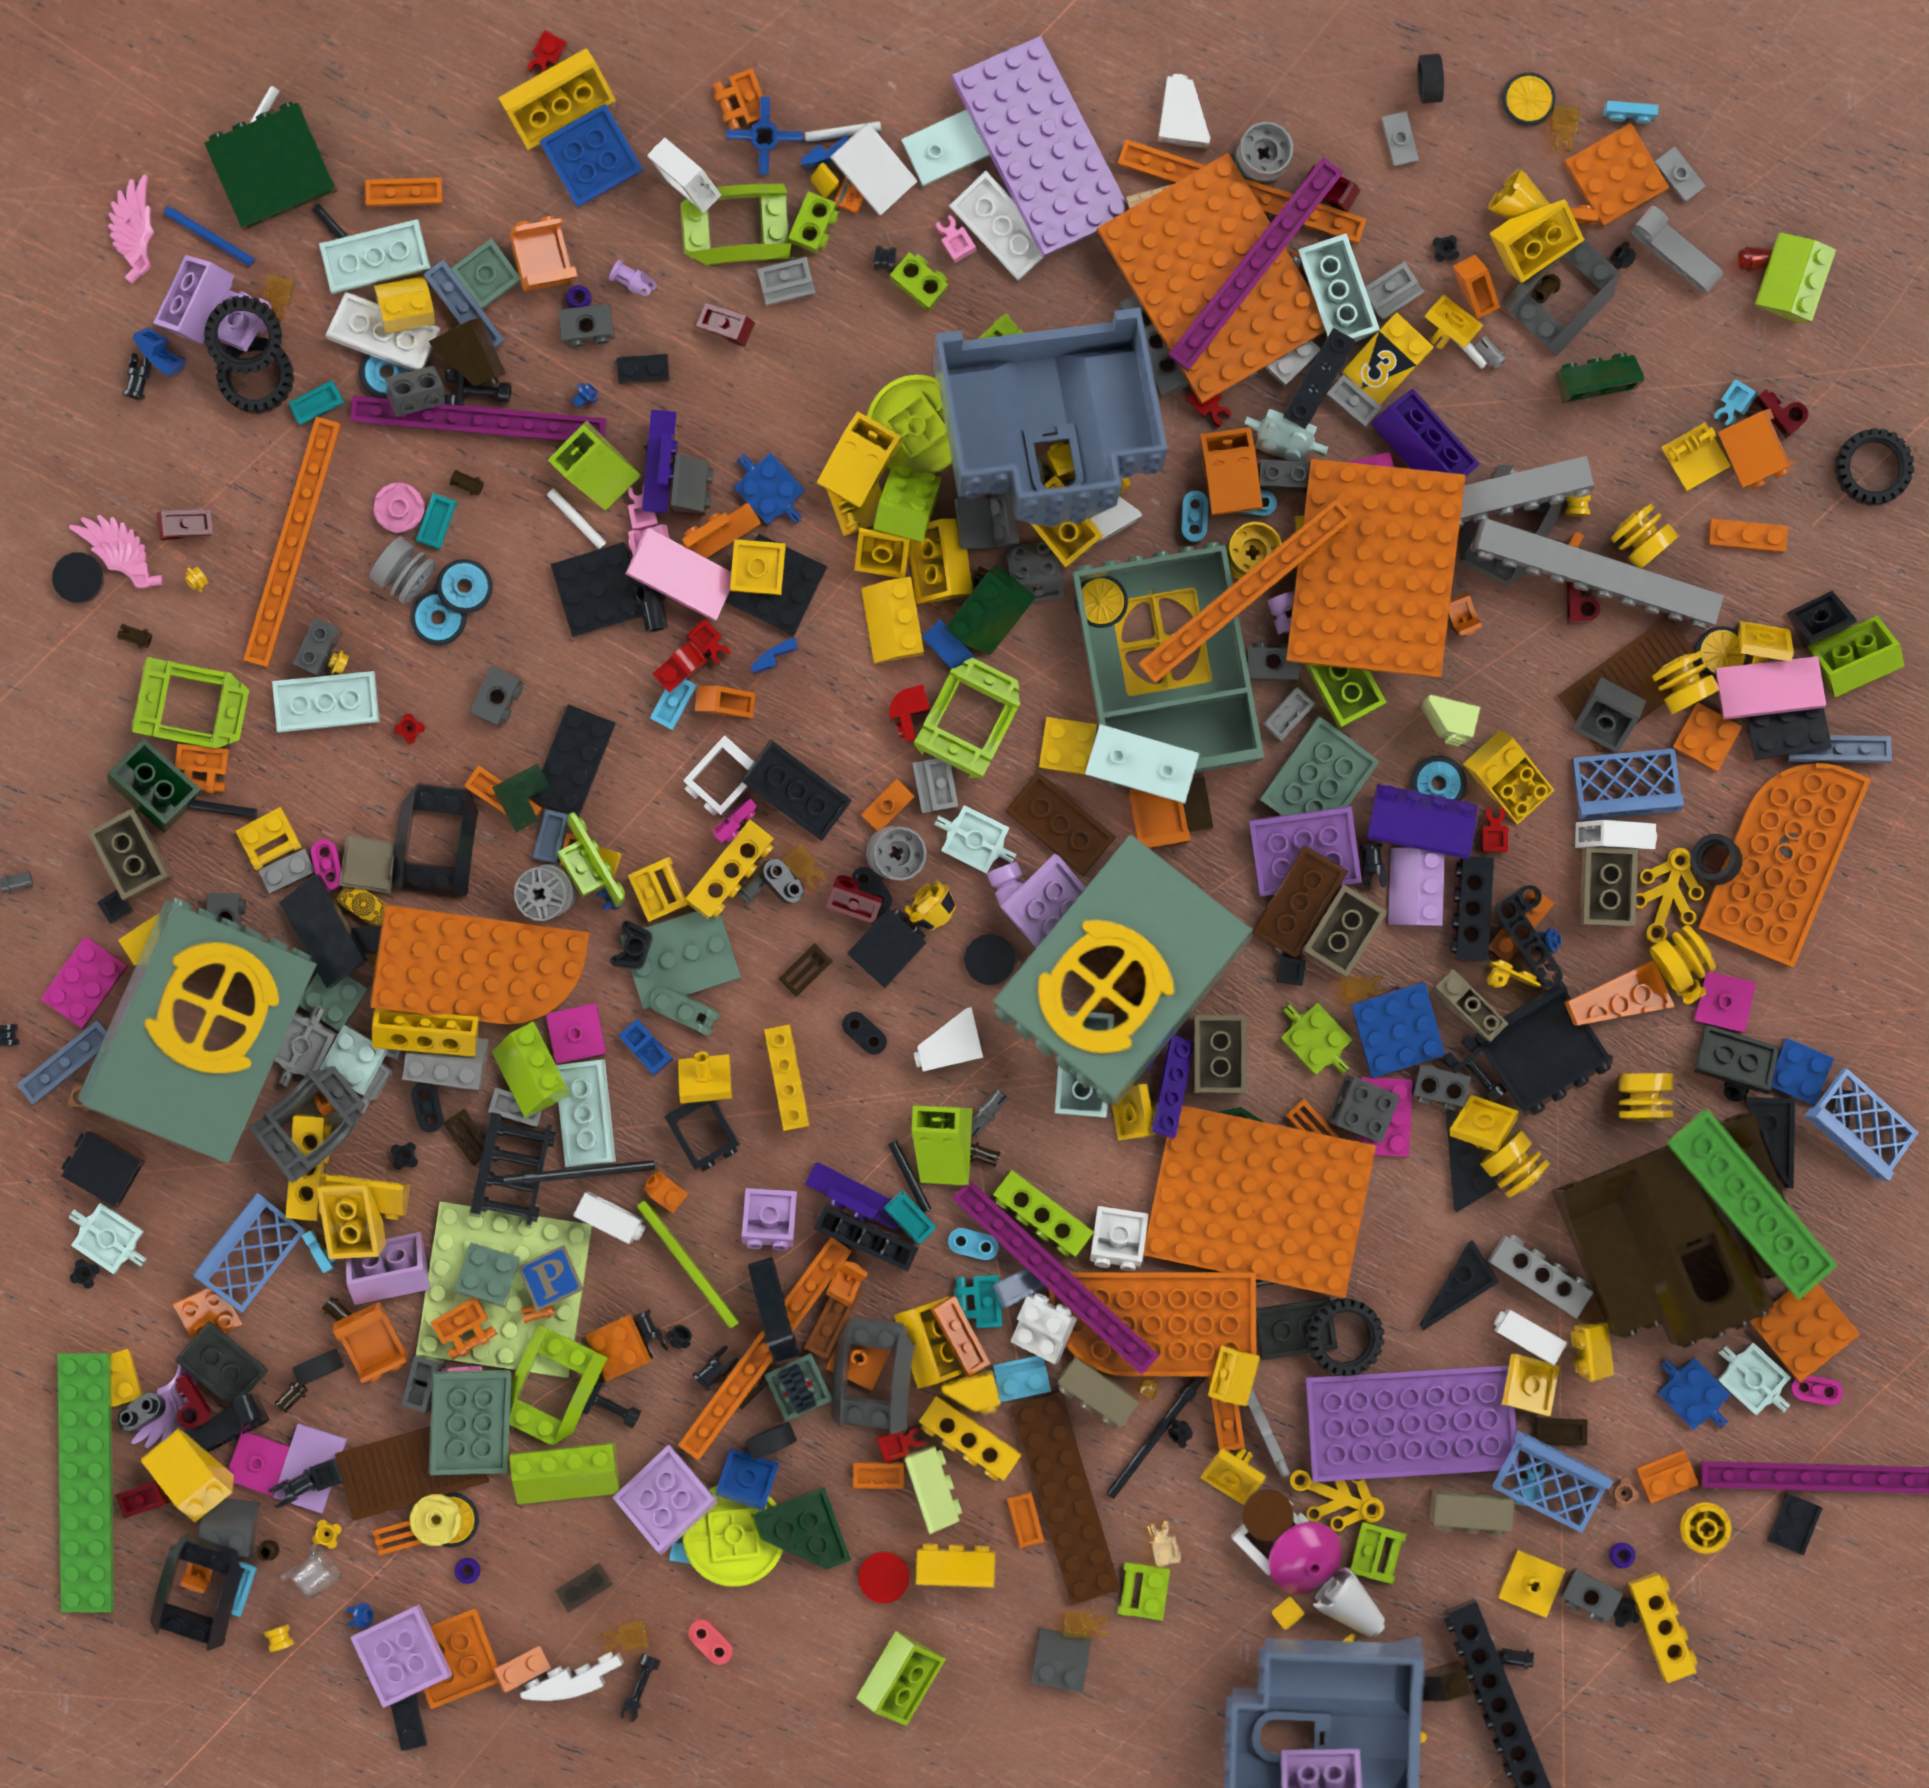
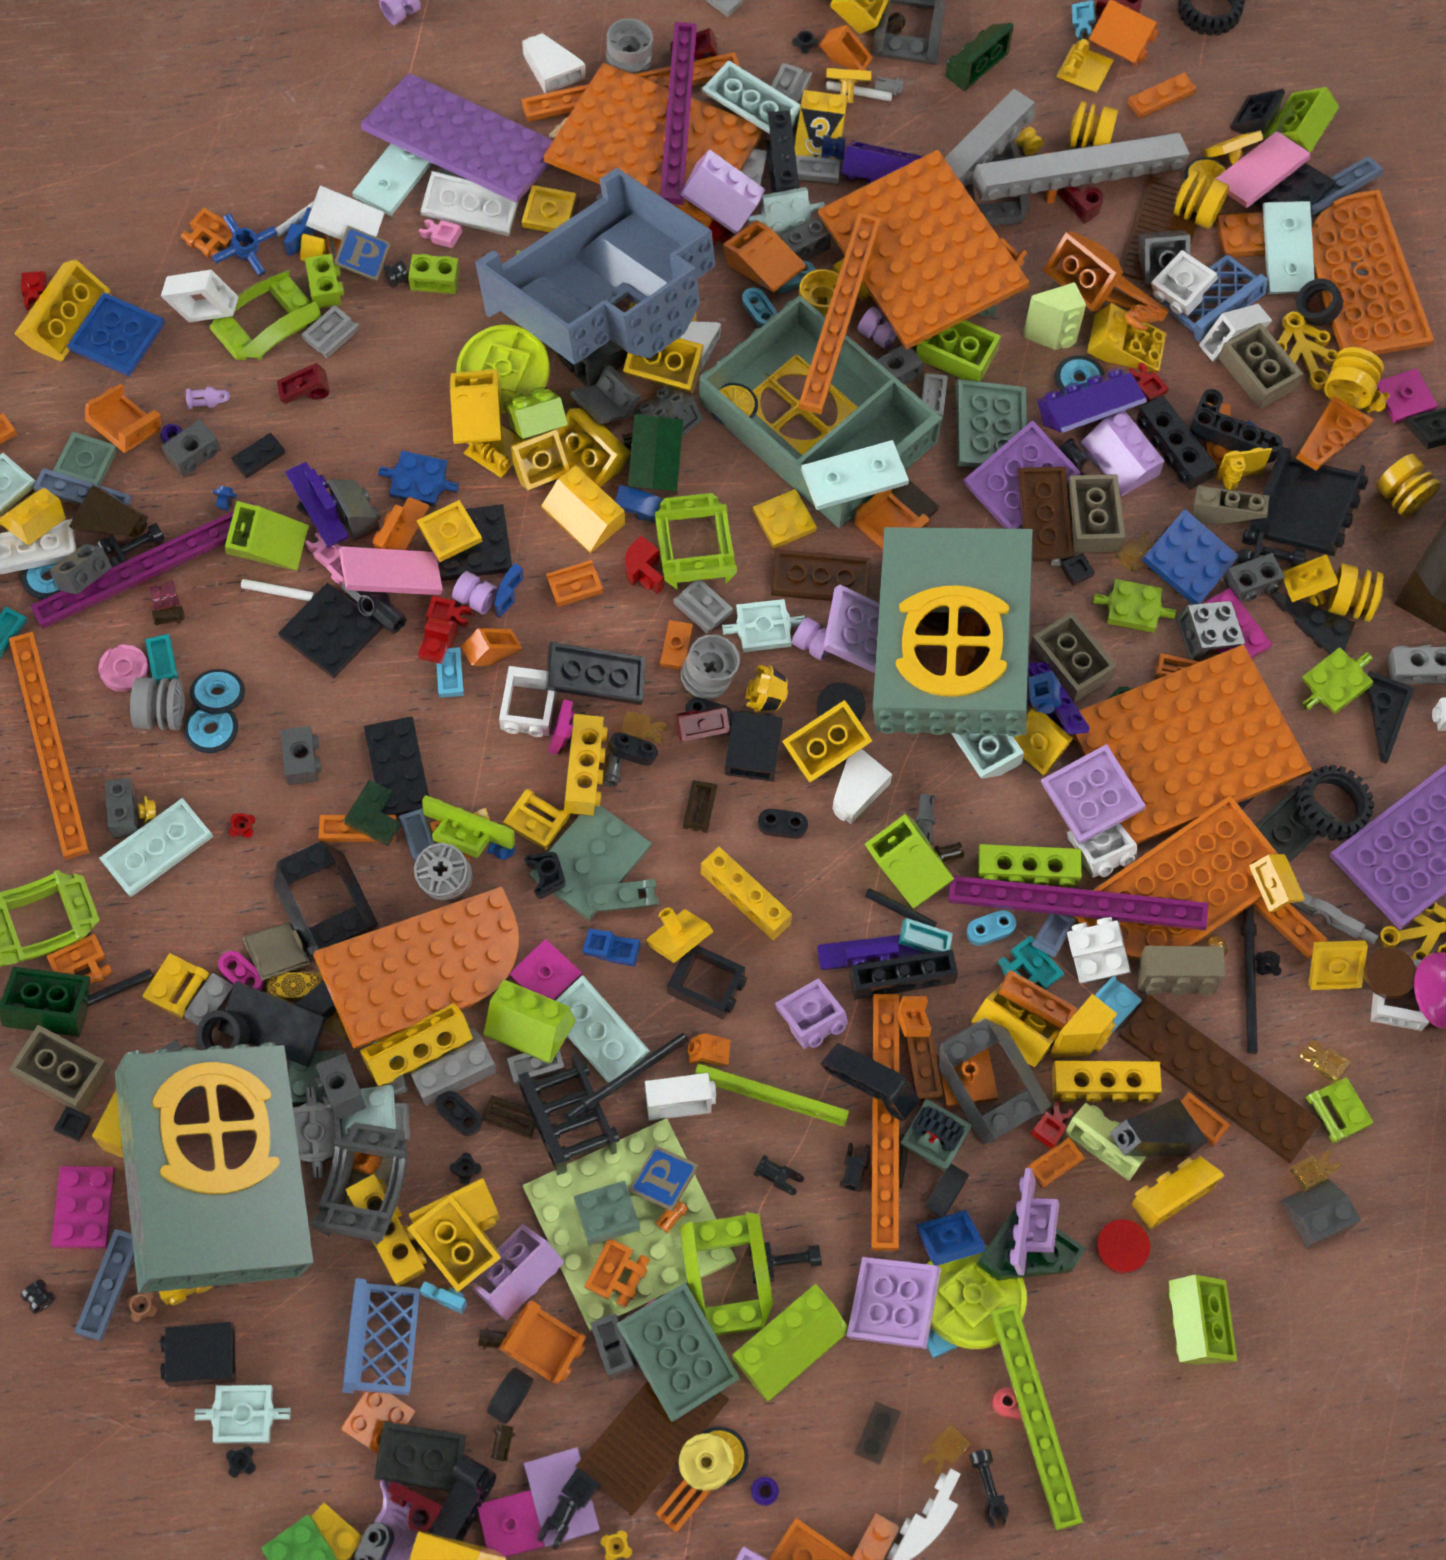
camera: 40 degrees left, 20 degrees down
(261, 913) = (206, 1026): none -> black tyre
(342, 1041) = (337, 1073): none -> dark grey brick
(474, 461) = (164, 595): none -> clear pink wheel
(622, 1346) = (764, 1197): orange plate -> none
(679, 1337) = (807, 1160): black plate -> none
(713, 1660) = (1036, 1417): none -> lime tile
(743, 640) = (473, 592): none -> lavender wheel
(820, 1516) = (1035, 1225): none -> lavender bracket
(837, 687) = (574, 583): none -> orange plate
(865, 218) = (362, 253): none -> piece
(947, 991) = (826, 741): none -> yellow slope
(977, 1513) = (1160, 1132): none -> black slope
(1071, 280) = (548, 208): none -> yellow plate
(1138, 1192) = (1093, 794): none -> lavender plate
(1157, 1074) = (1044, 692): none -> blue brick
(1232, 383) = (722, 191): none -> lavender slope
(1381, 392) = (828, 144): none -> clear blue wheel
(1437, 1230) = (1337, 681): none -> lime plate
(1519, 698) = (1096, 274): none -> orange slope
(1600, 758) = (1183, 283): none -> white plate
(1732, 784) = (1288, 246): none -> light aqua plate

